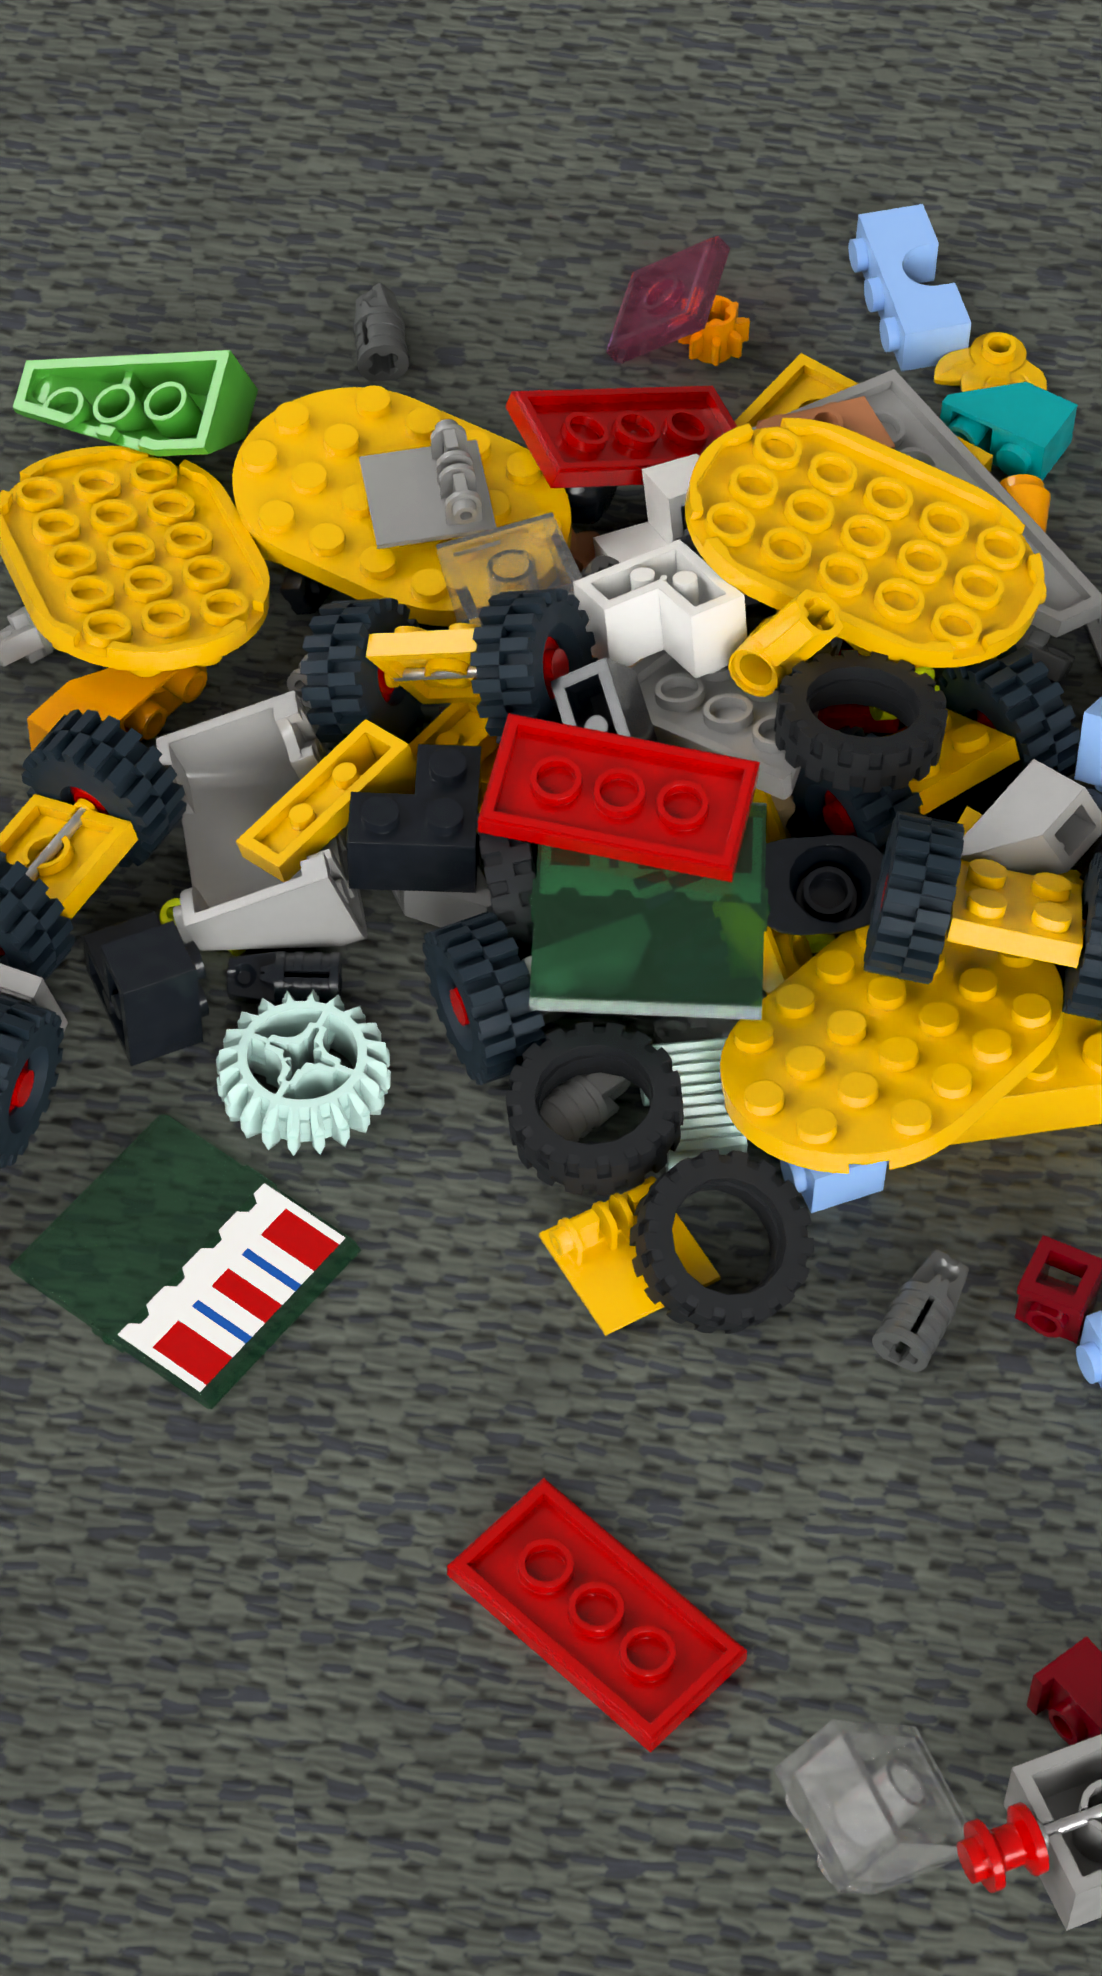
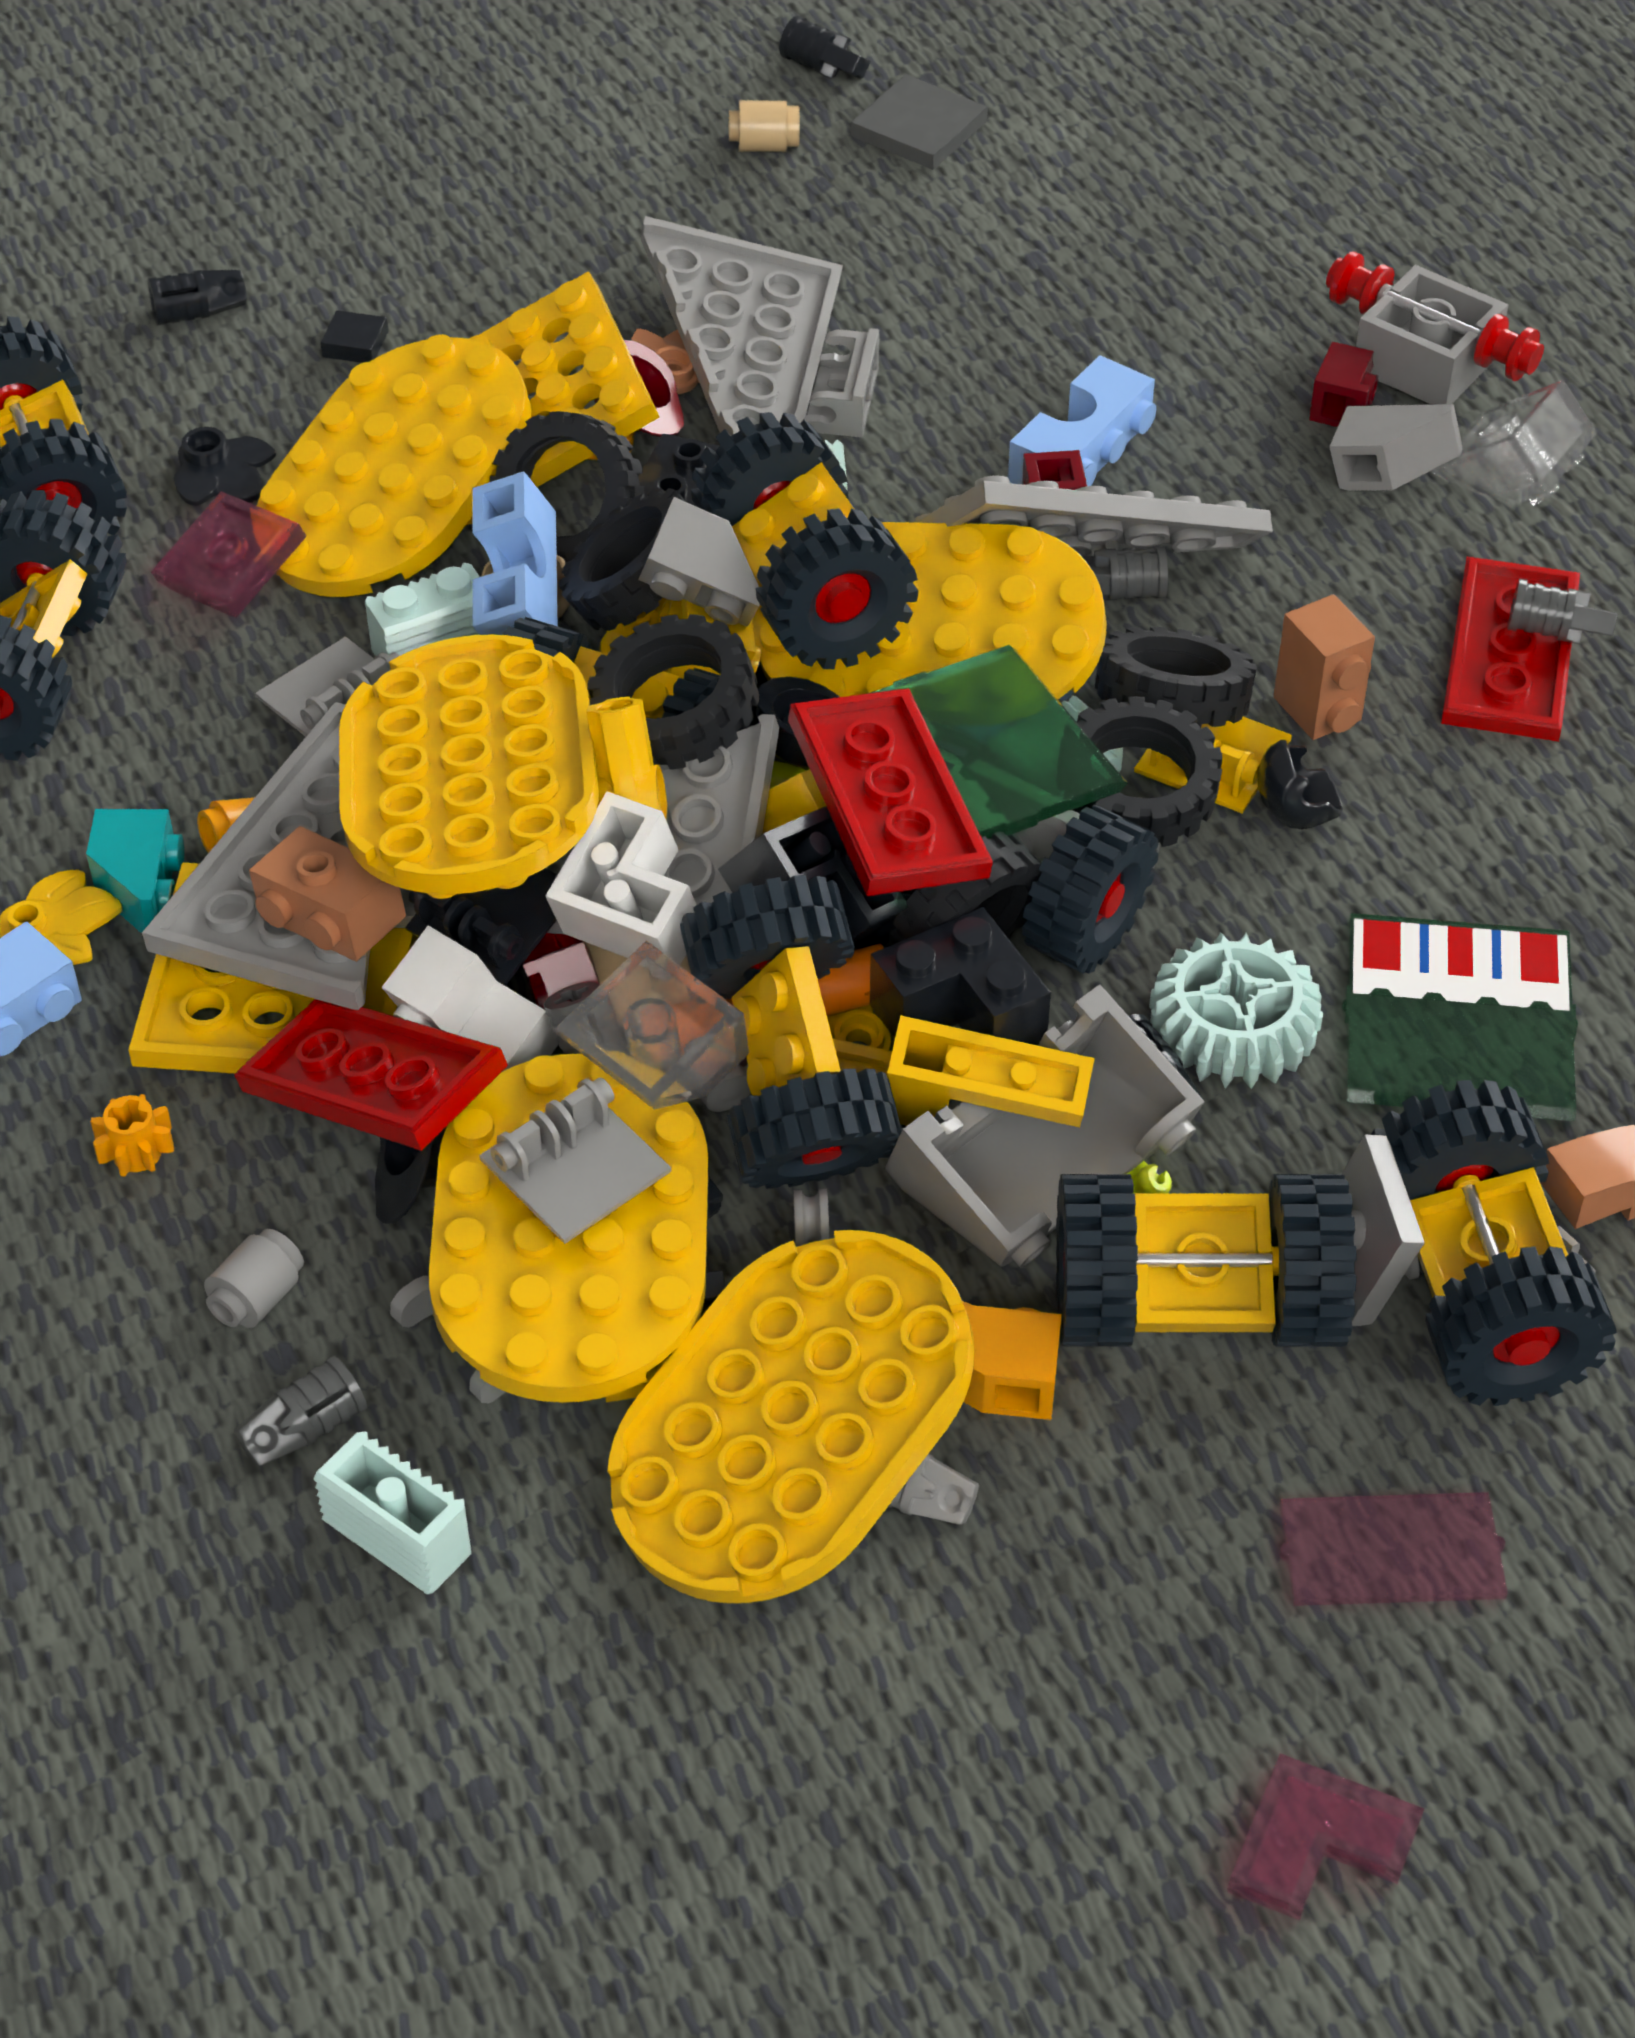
camera: 120 degrees left, 5 degrees down
(143, 400) = (556, 1536): bright green wedge -> none
(148, 985) = (1264, 1125): black brick -> none
(250, 319) = (394, 1512): none -> light aqua brick
(512, 1260) = (1294, 793): none -> black hair
(519, 347) = (253, 1279): none -> light grey brick
(580, 1640) = (1557, 613): none -> dark grey hinge
(635, 1359) = (1323, 667): none -> nougat brick
(668, 300) = (124, 1170): clear pink tile -> none
(950, 1660) = (1393, 444): none -> light grey slope
(992, 1190) = (1098, 520): none -> light grey wing

